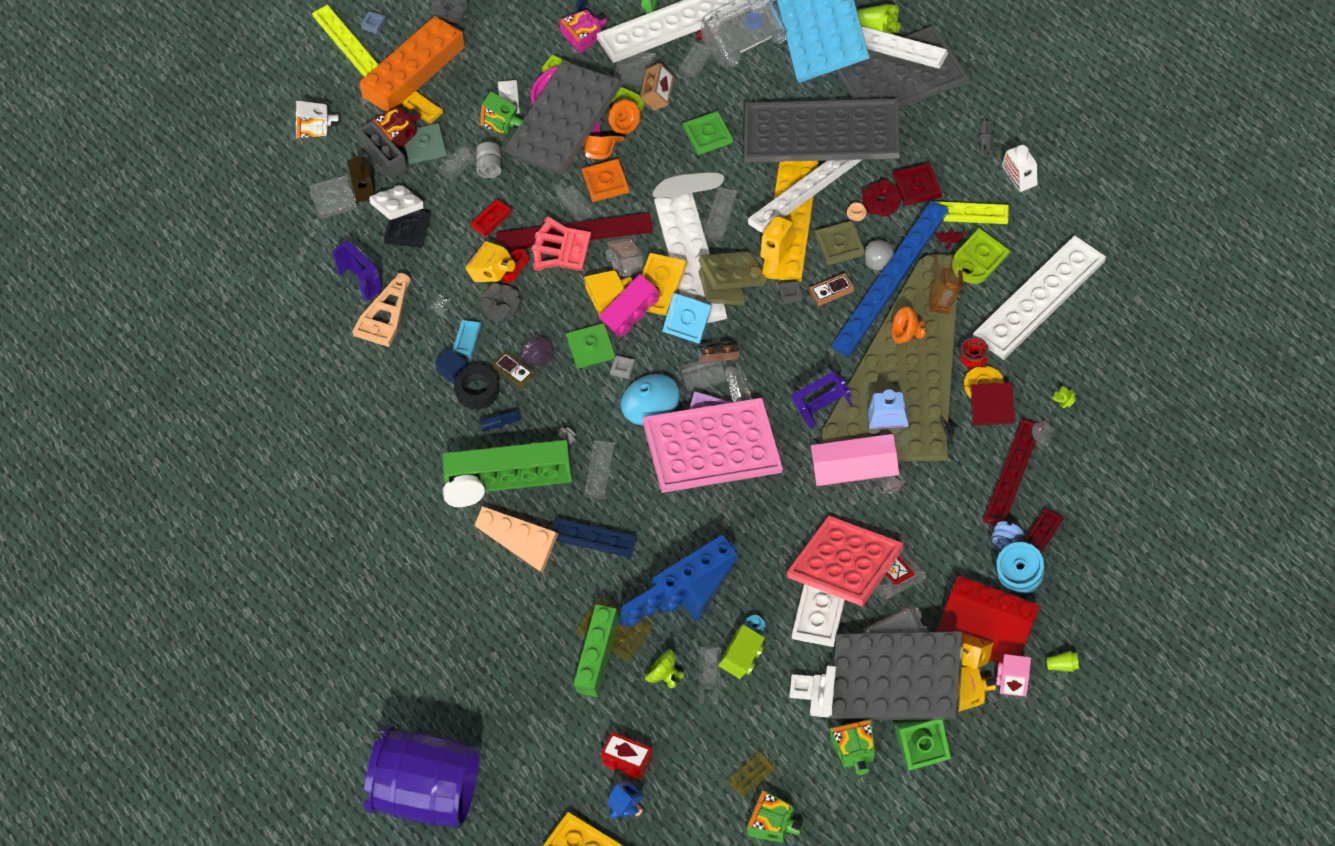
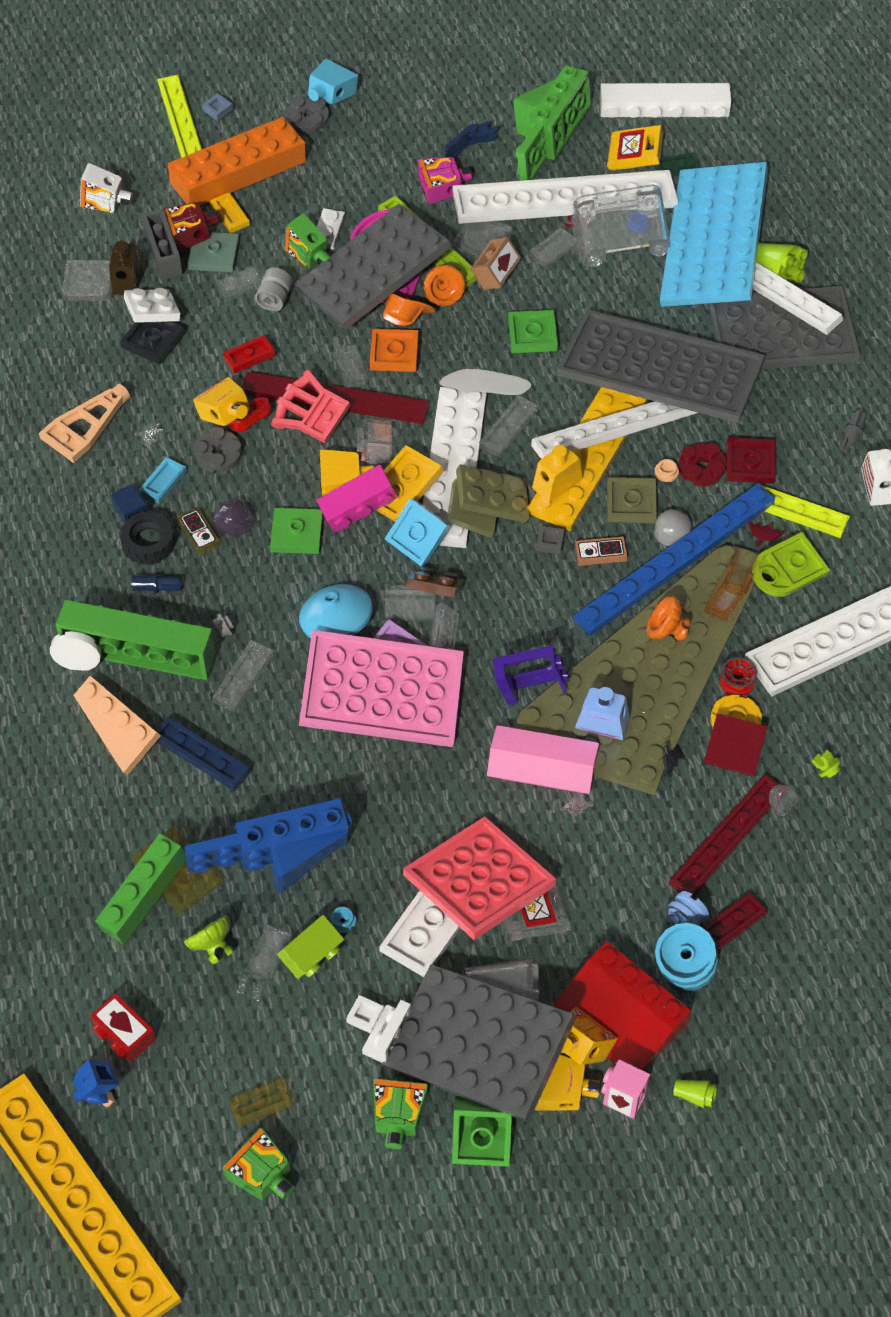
camera: 15 degrees right, 0 degrees up
(367, 278) = (78, 377): dark purple panel -> none
(622, 367) = (322, 566): light grey tile -> none

